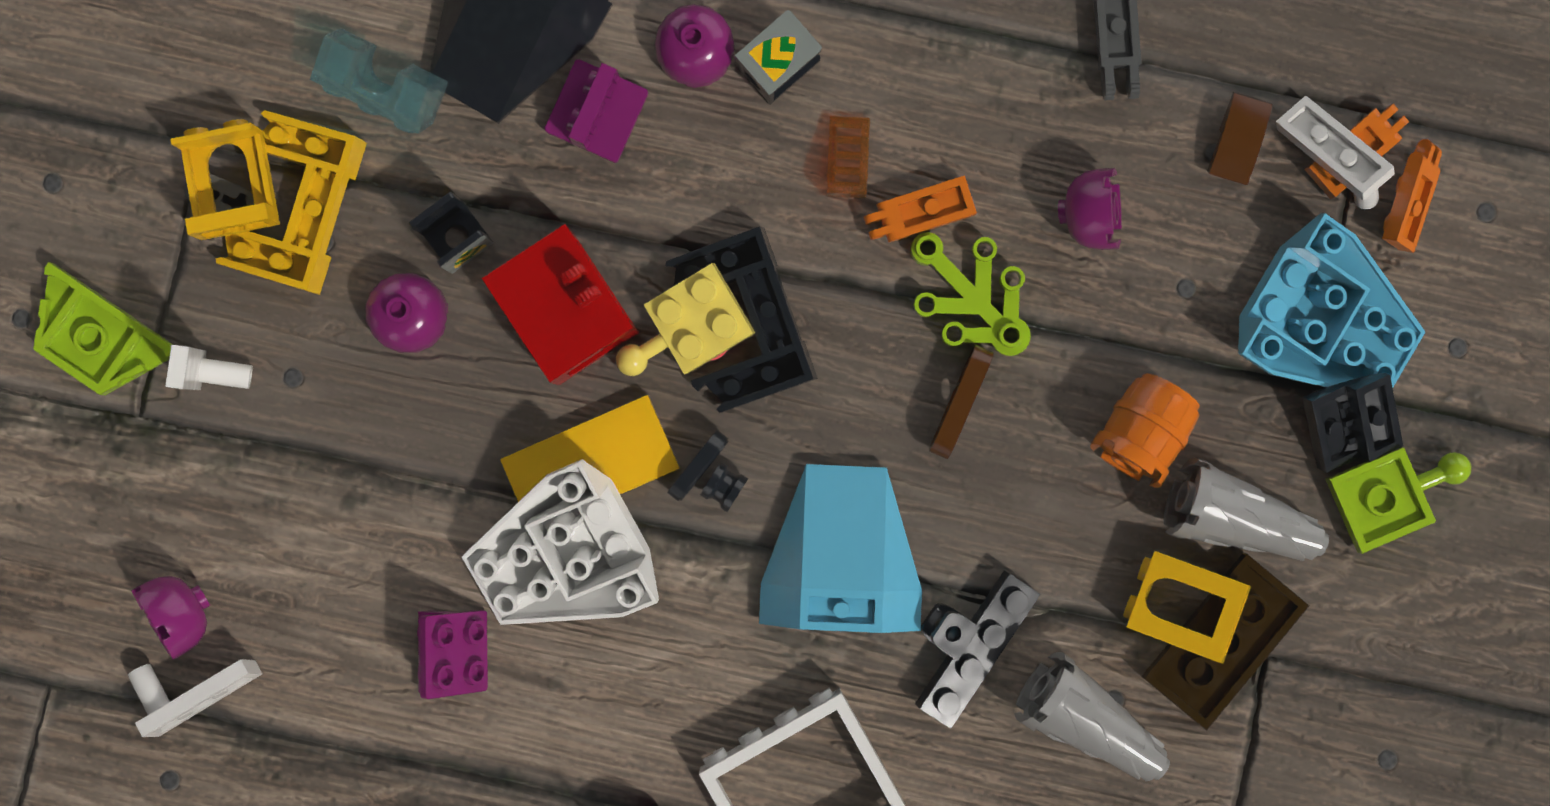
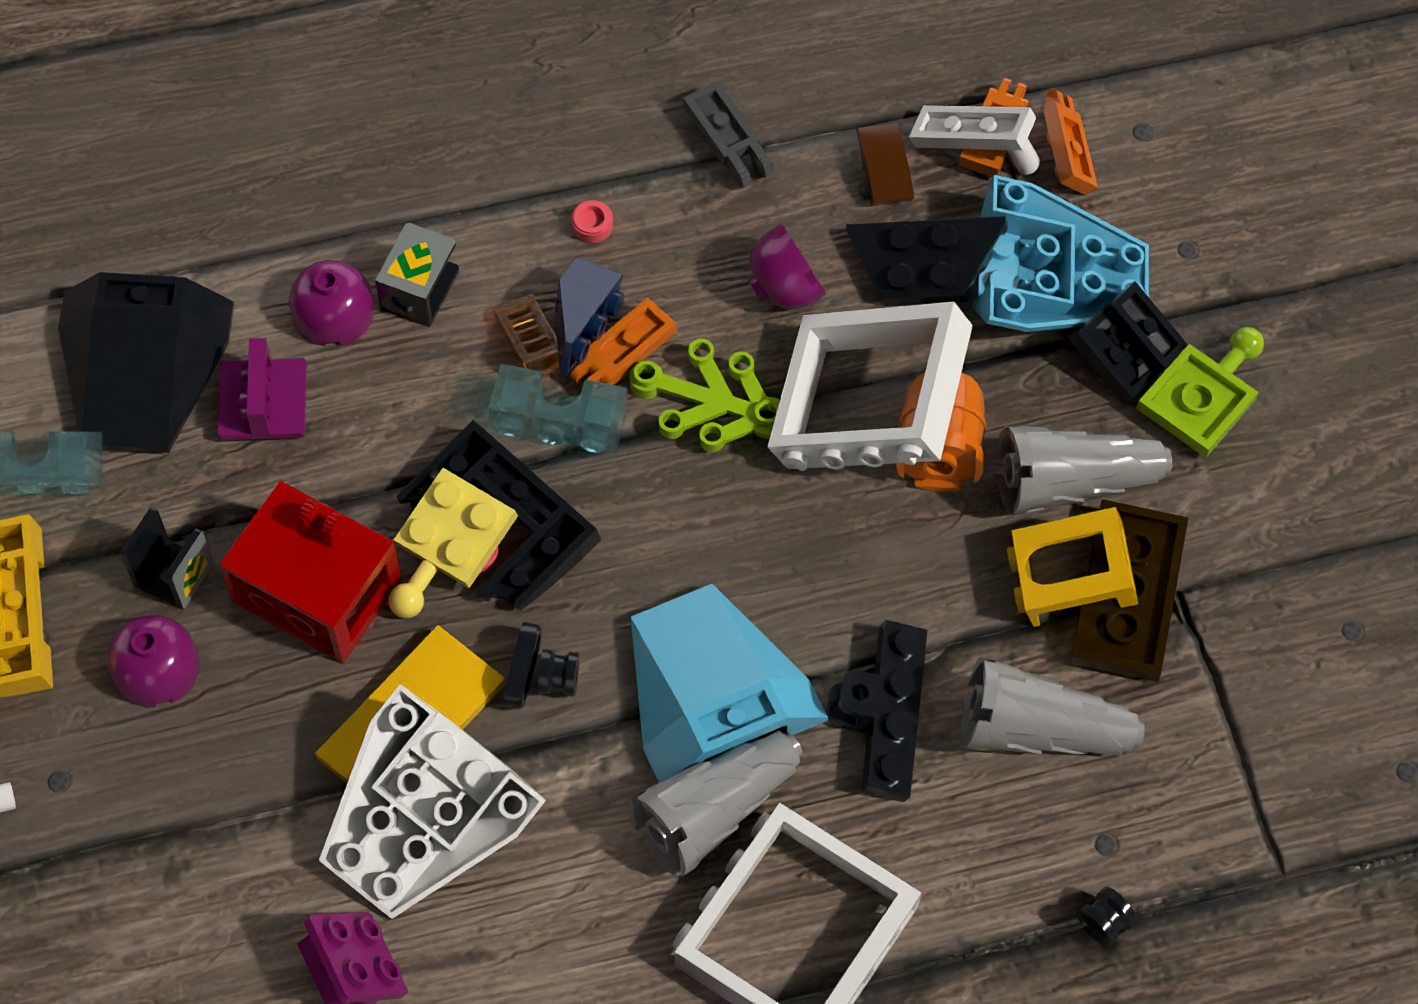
camera: 25 degrees left, 25 degrees down
(781, 662) = (708, 800): none -> light grey cone
(805, 228) = (589, 422): none -> clear light blue arch
(901, 159) = (582, 307): none -> dark blue slope
(956, 69) = (592, 221): none -> coral tile
(961, 401) = (752, 492): reddish brown beam -> none
(1160, 412) = (872, 328): none -> white window
(1223, 253) = (926, 257): none -> black wing

